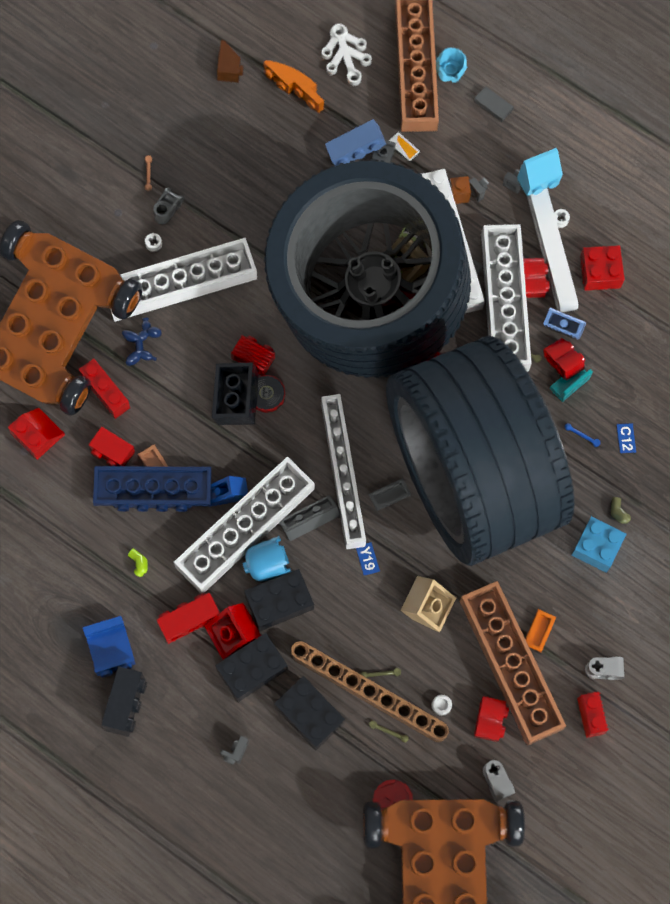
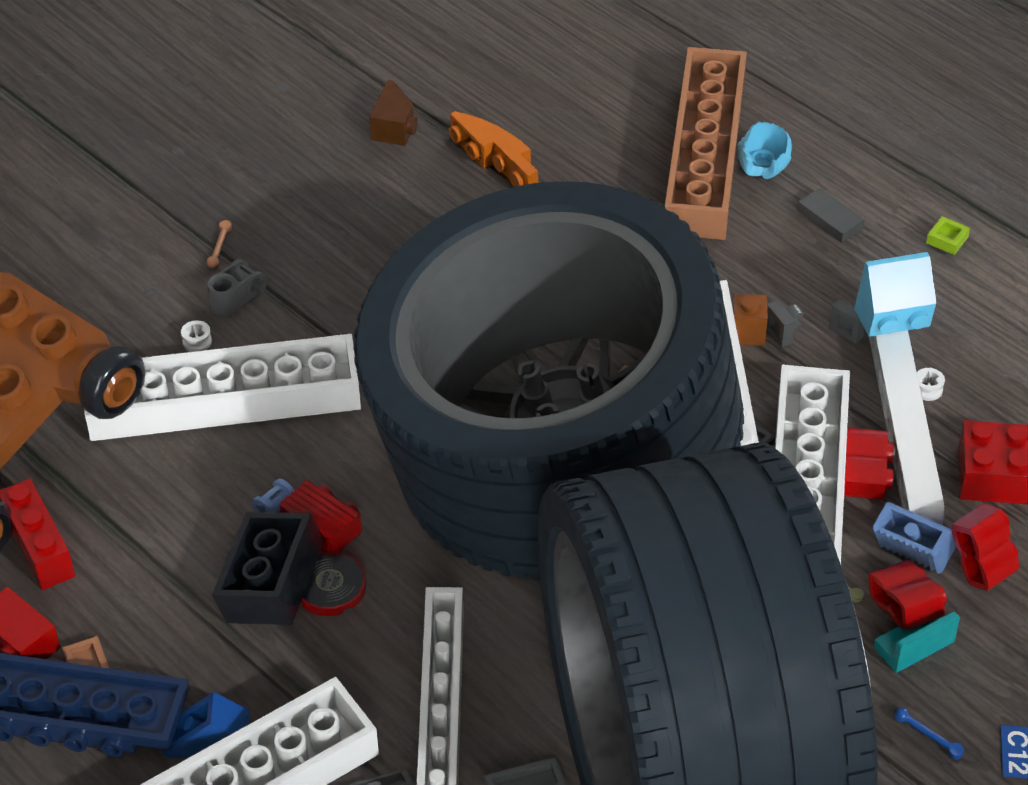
camera: 15 degrees right, 25 degrees down
(153, 332) = (115, 466): dark blue piece -> none
(224, 354) = (271, 500): none -> medium blue bush
(345, 52) = (587, 98): white plant -> none
(561, 112) = (948, 235): none -> lime plate
(602, 326) = (985, 546): none -> red brick

